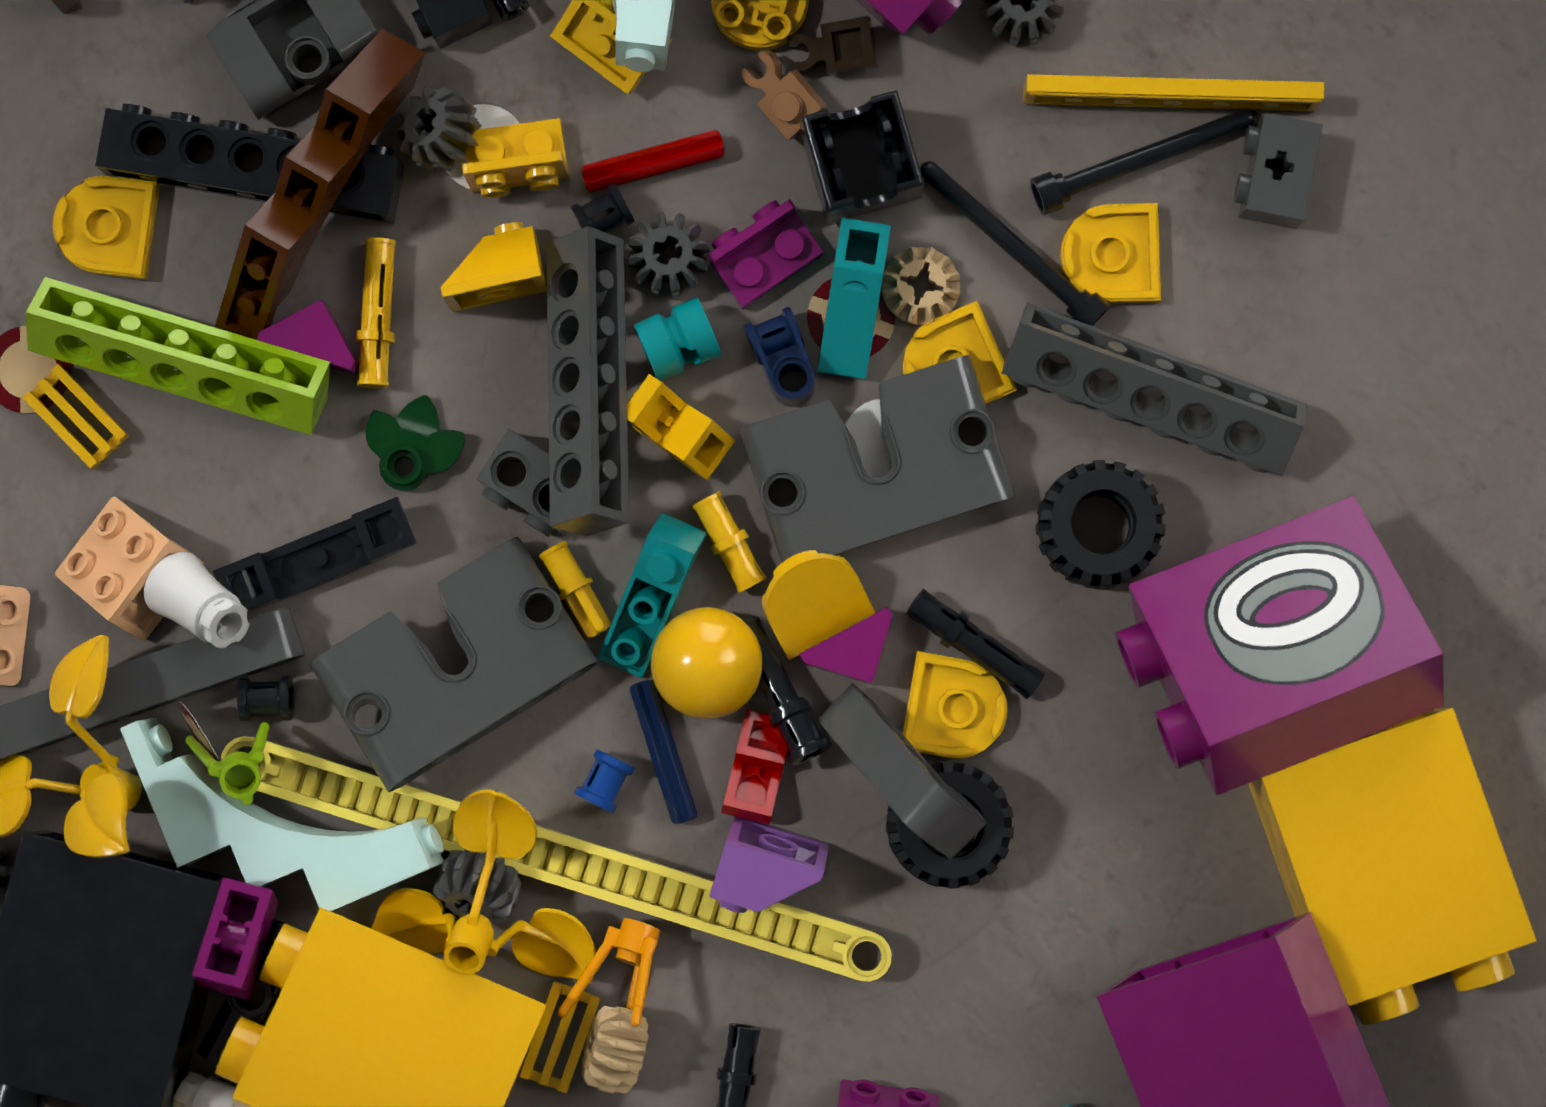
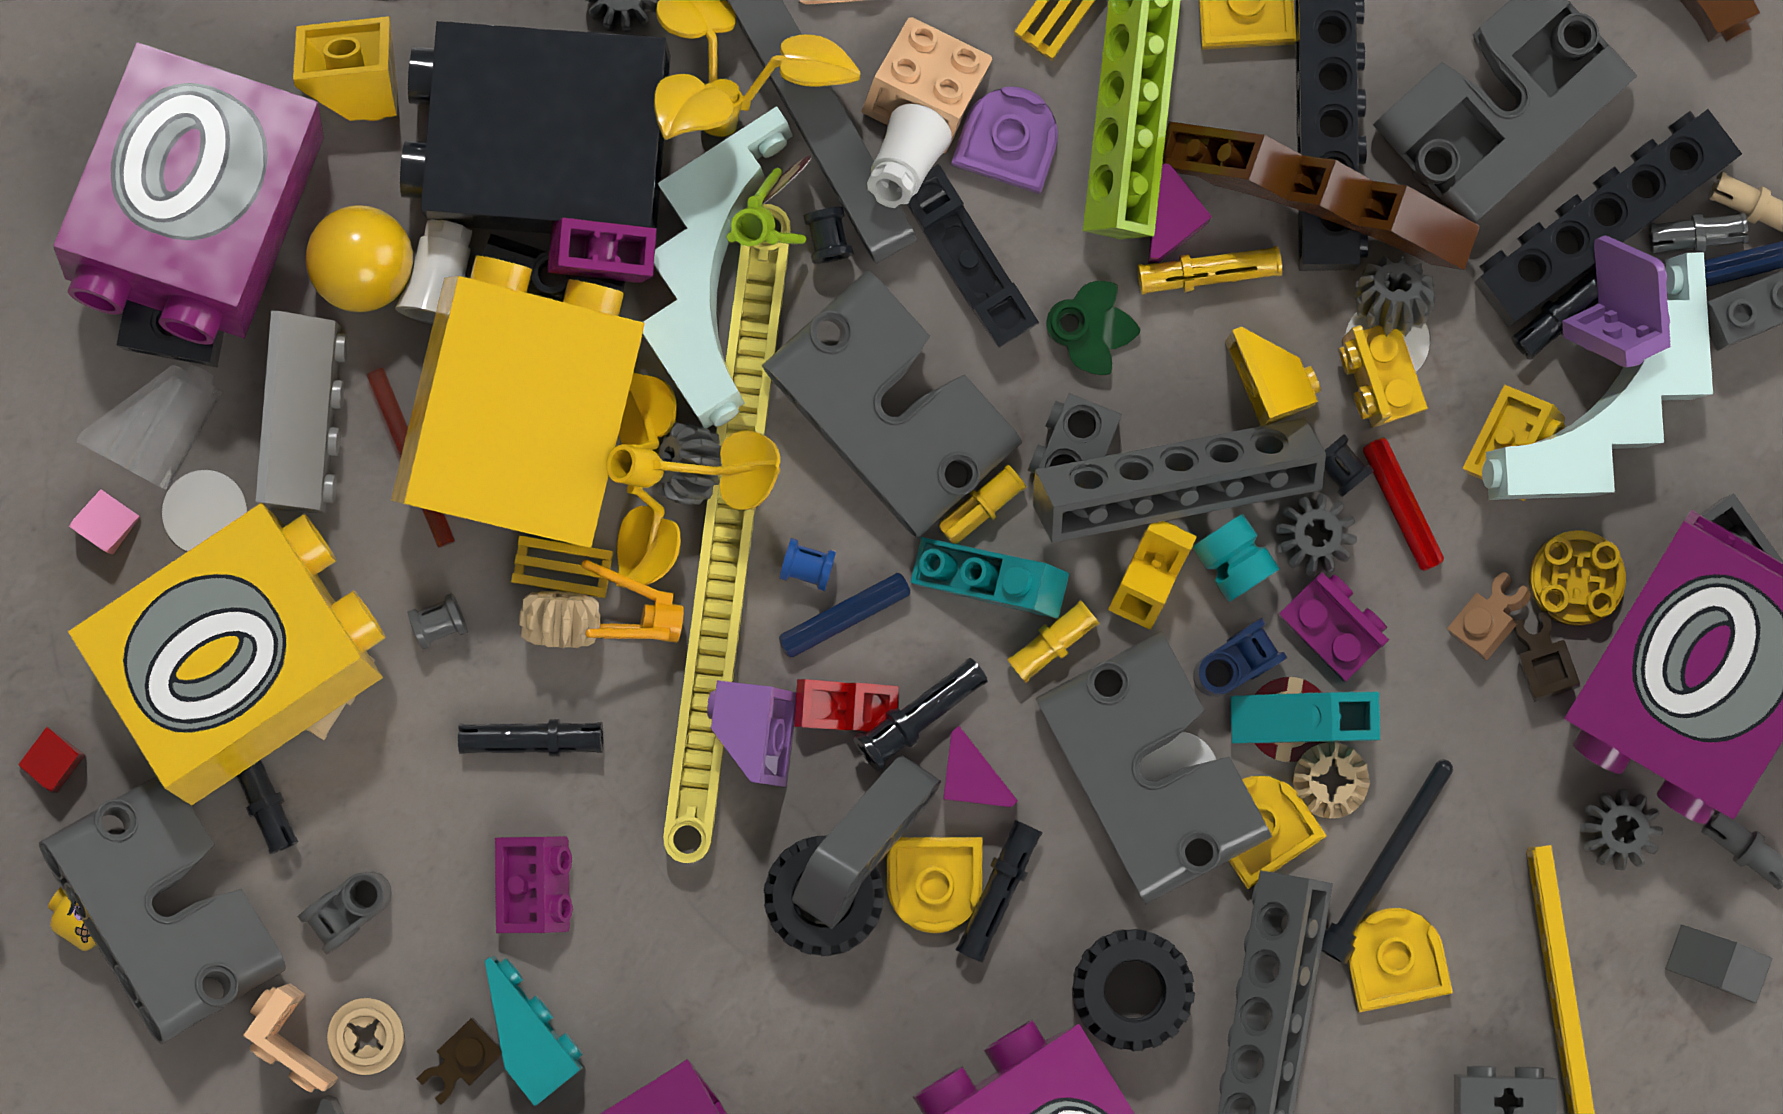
camera: 80 degrees right, 0 degrees up
(201, 494) = (1008, 138): none -> medium lavender tile
(706, 663) = (935, 640): yellow piece -> none
(813, 600) = (1011, 730): yellow tile -> none
(862, 158) = (1440, 701): black piece -> none
(1054, 190) = (1446, 892): black piece -> none

